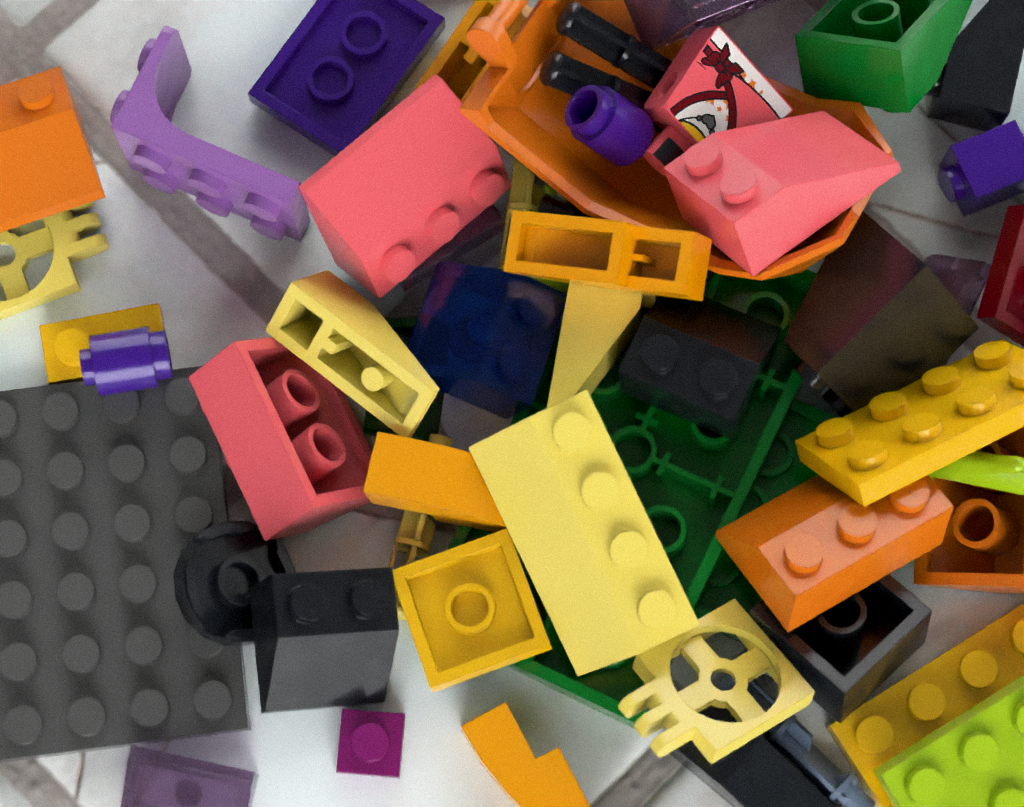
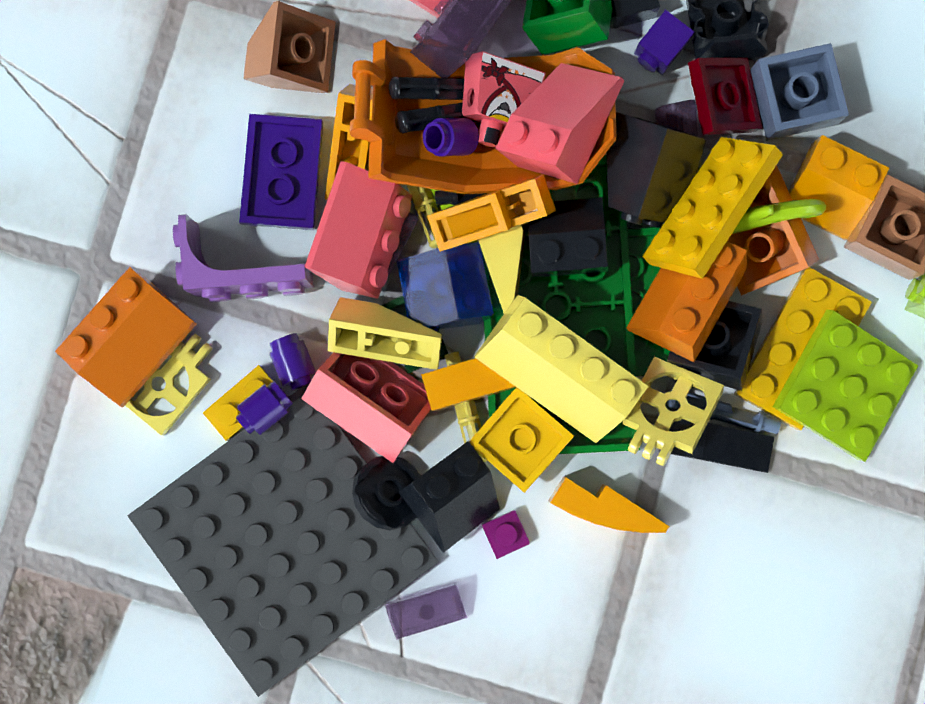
camera: 25 degrees left, 10 degrees up
(206, 319) = (292, 361): none -> dark purple brick

